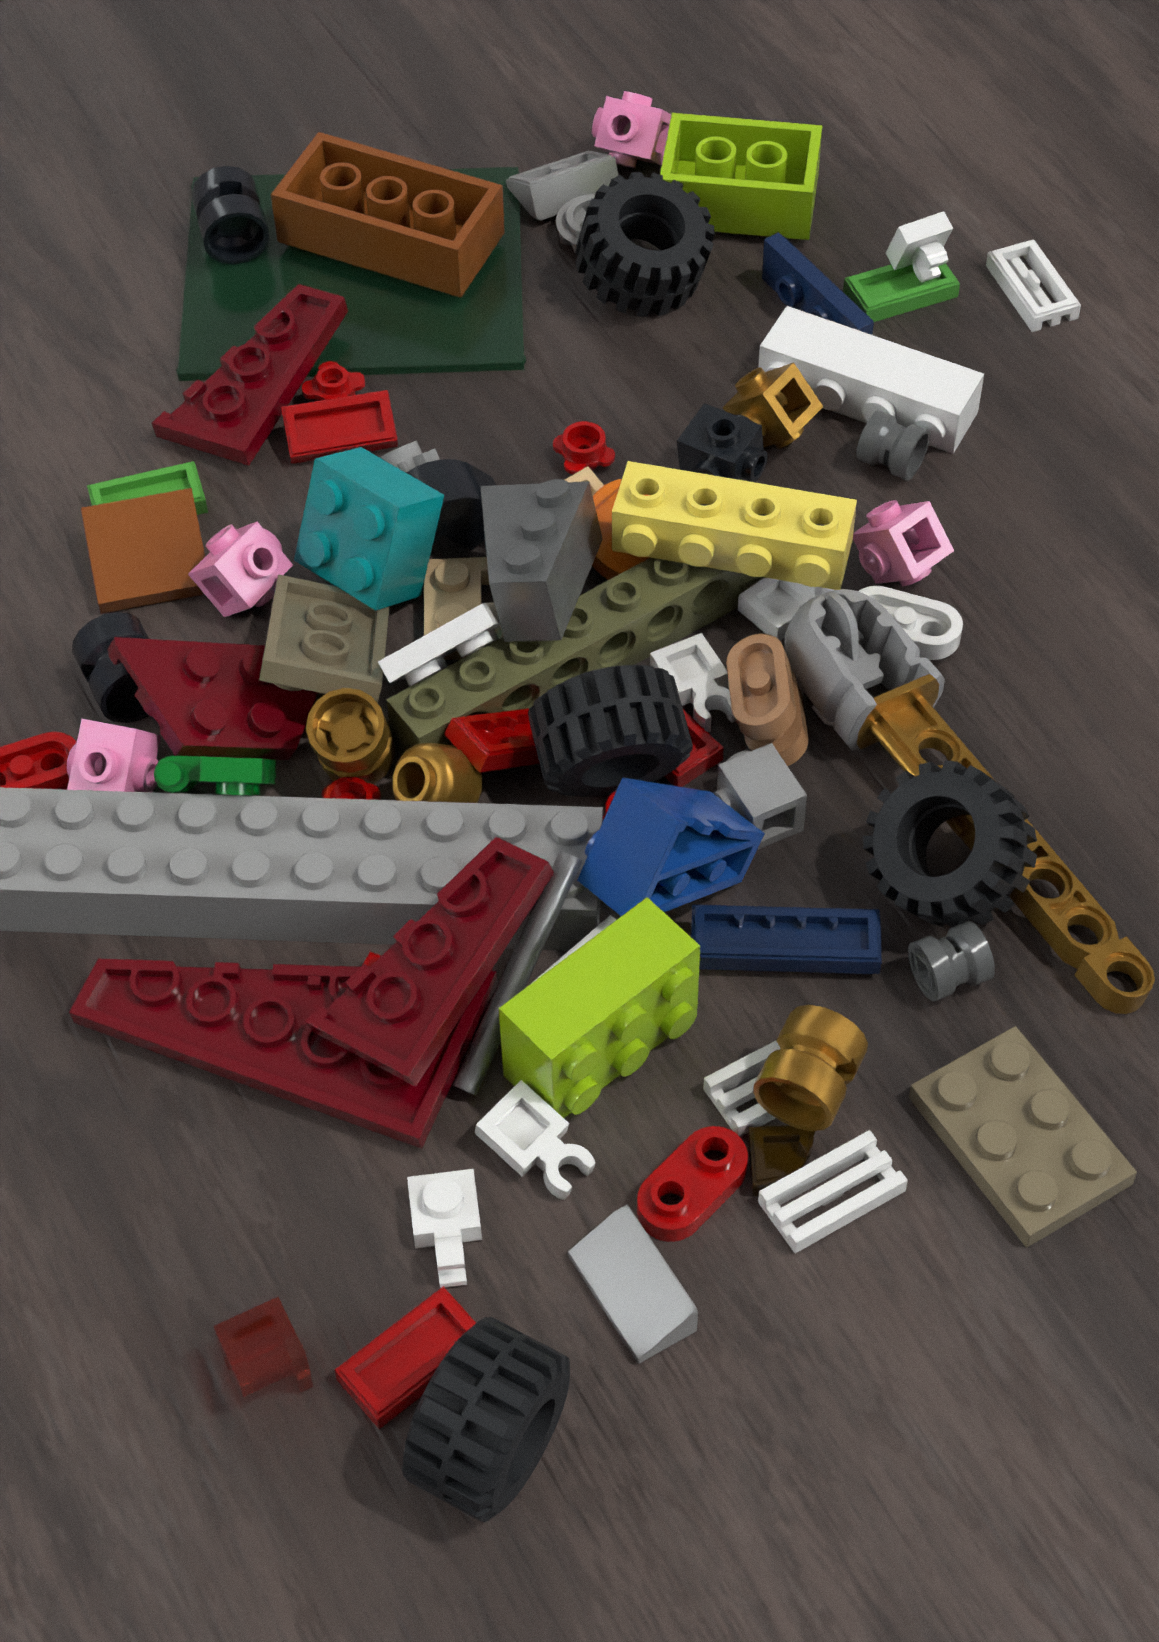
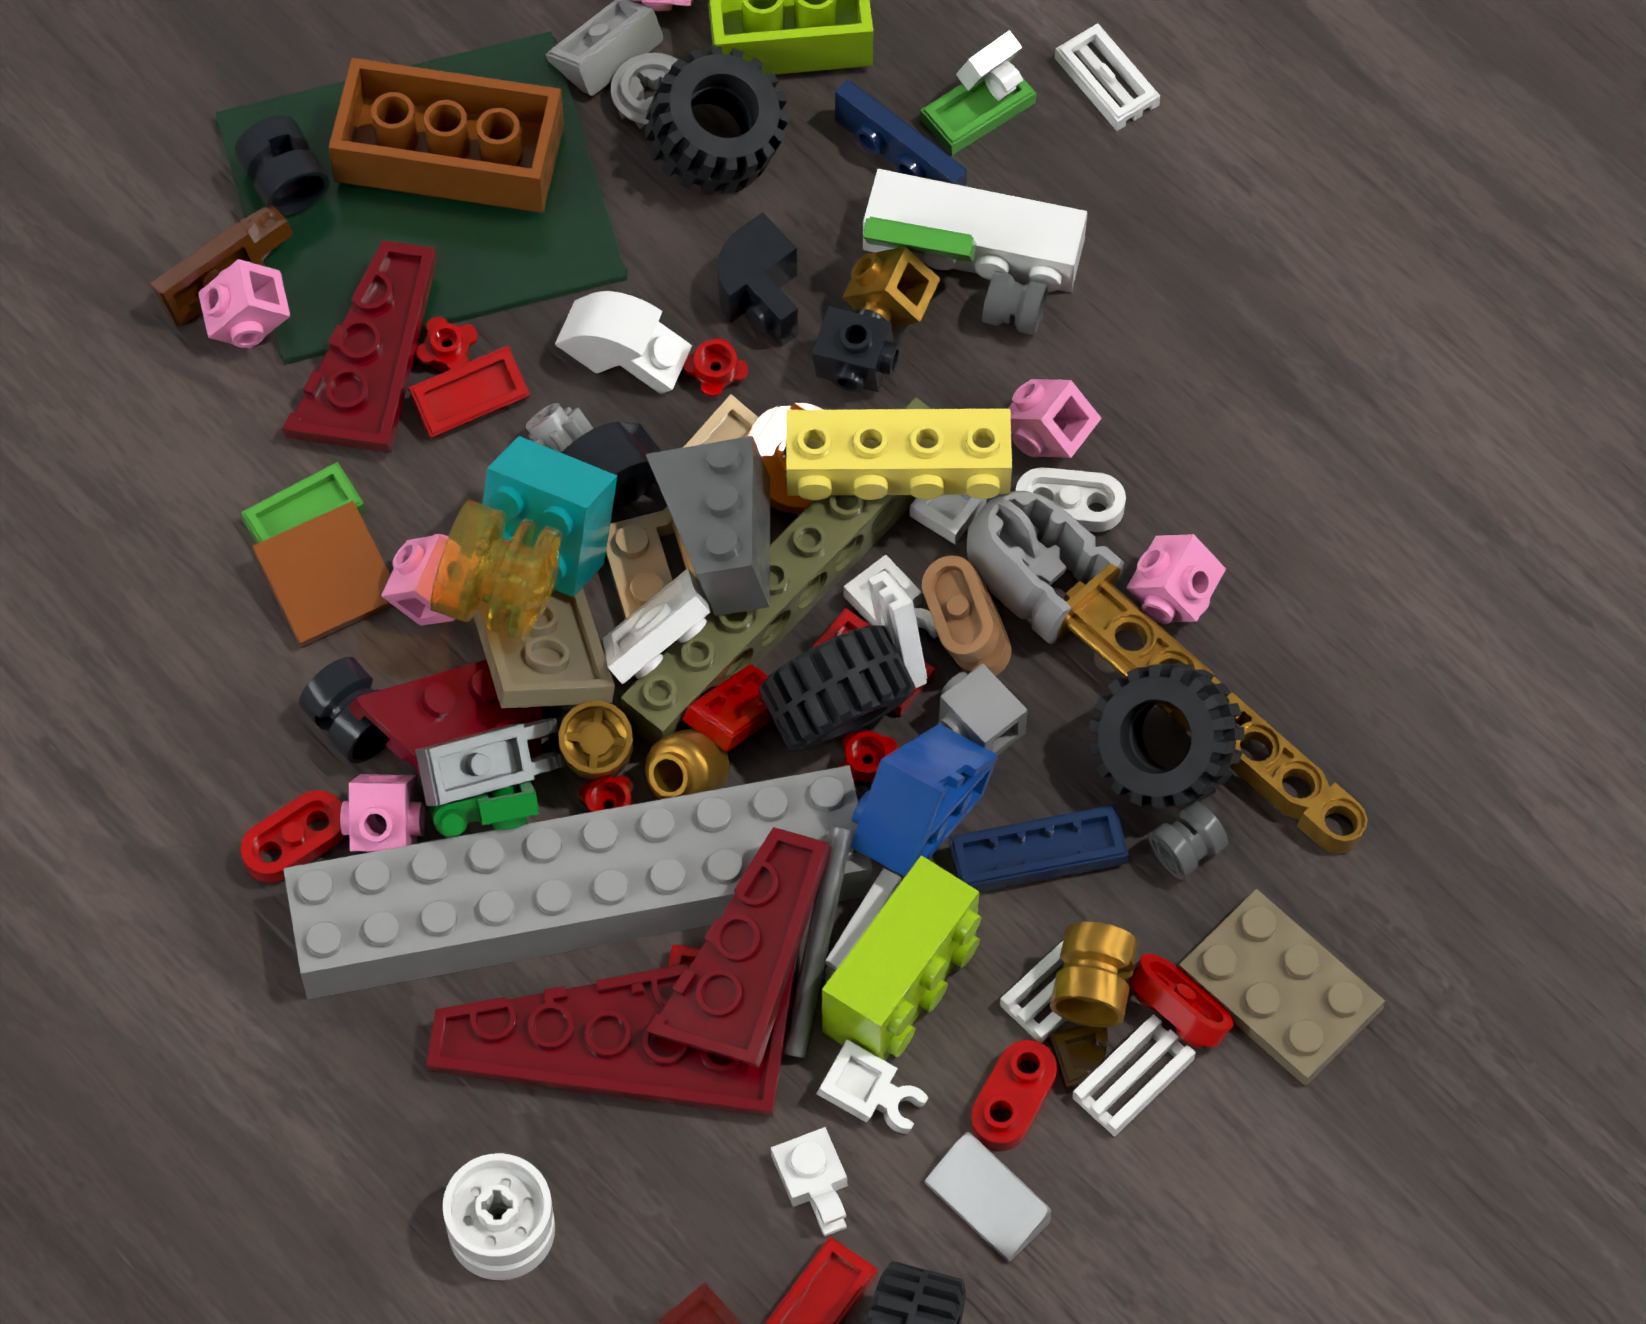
camera: 15 degrees left, 10 degrees up
(86, 1181) = (470, 1210): none -> white wheel
(144, 284) = (246, 240): none -> reddish brown hinge
(153, 314) = (244, 304): none -> bright pink brick
(224, 726) = (484, 761): none -> hinge
(291, 548) = (496, 570): none -> clear yellow wheel
(500, 395) = (623, 331): none -> white brick
(644, 378) = (750, 273): none -> black brick
(688, 668) = (897, 614): none -> white tile
(815, 362) = (920, 239): none -> bright green tile
(893, 1109) = (1180, 1000): none -> red plate
(997, 708) = (1175, 579): none -> bright pink brick

